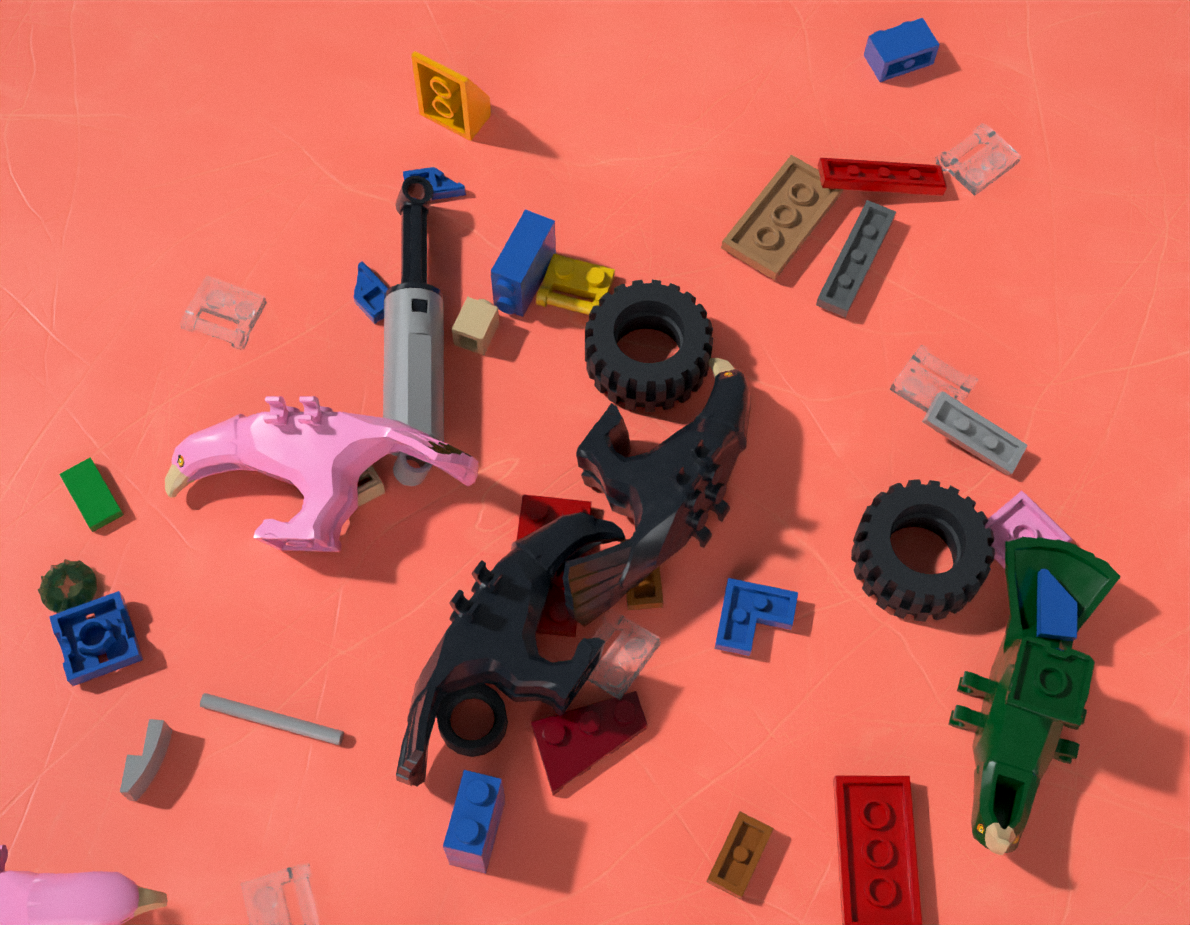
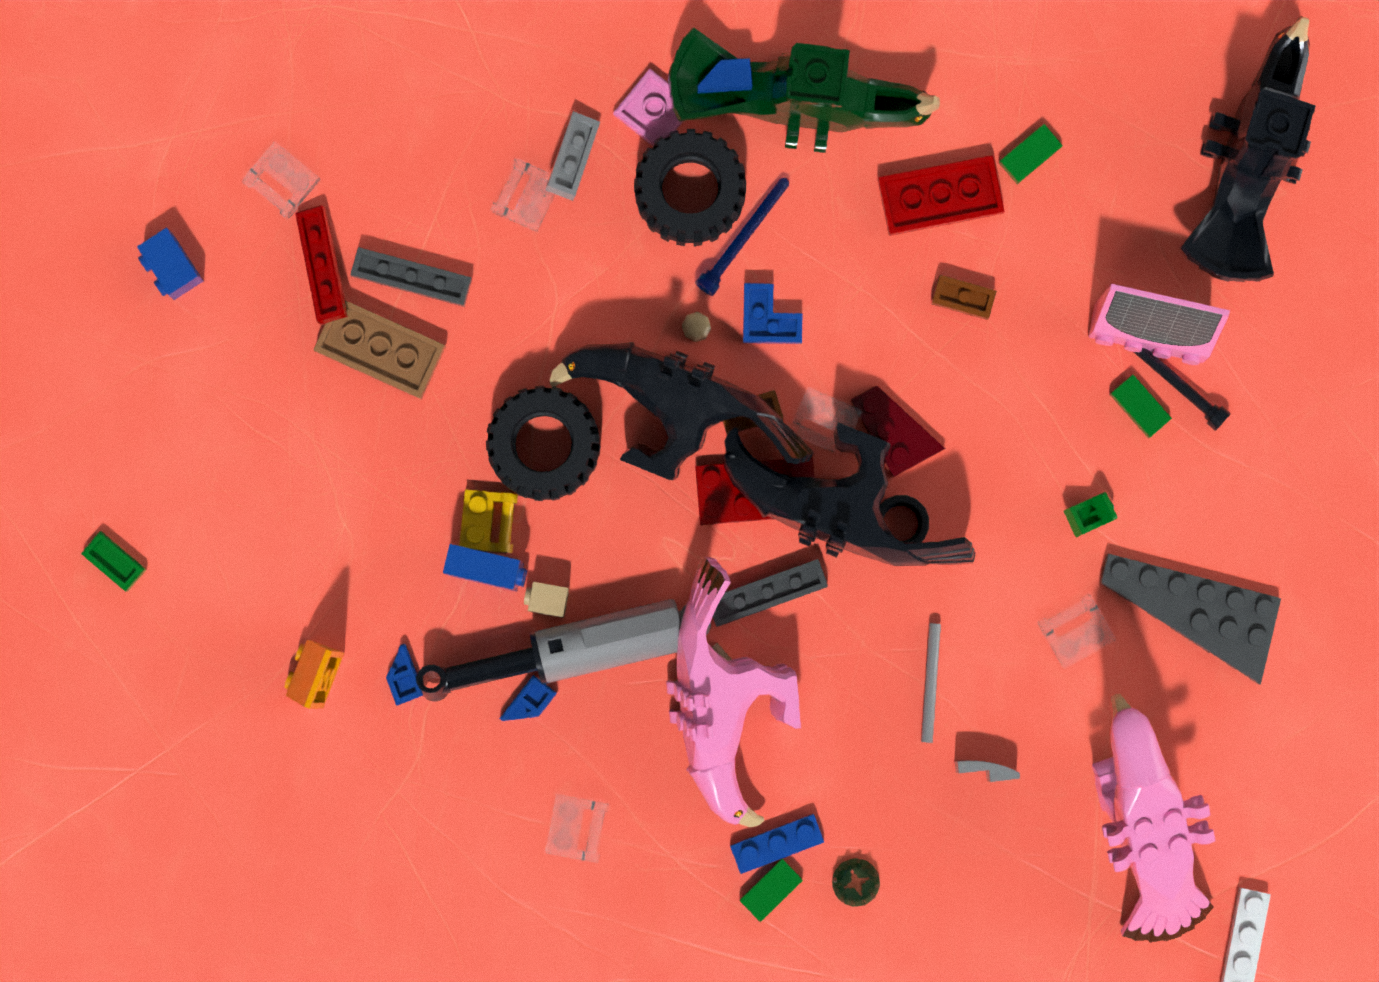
camera: 100 degrees left, 20 degrees up
(87, 639) = (900, 847): blue brick -> none
(140, 511) = (777, 843): none -> blue plate
(426, 552) = (770, 592): none -> dark grey plate
(474, 821) = (989, 497): blue brick -> none
(754, 534) = (696, 327): none -> tan tile
(807, 557) = (710, 280): none -> clear blue piece

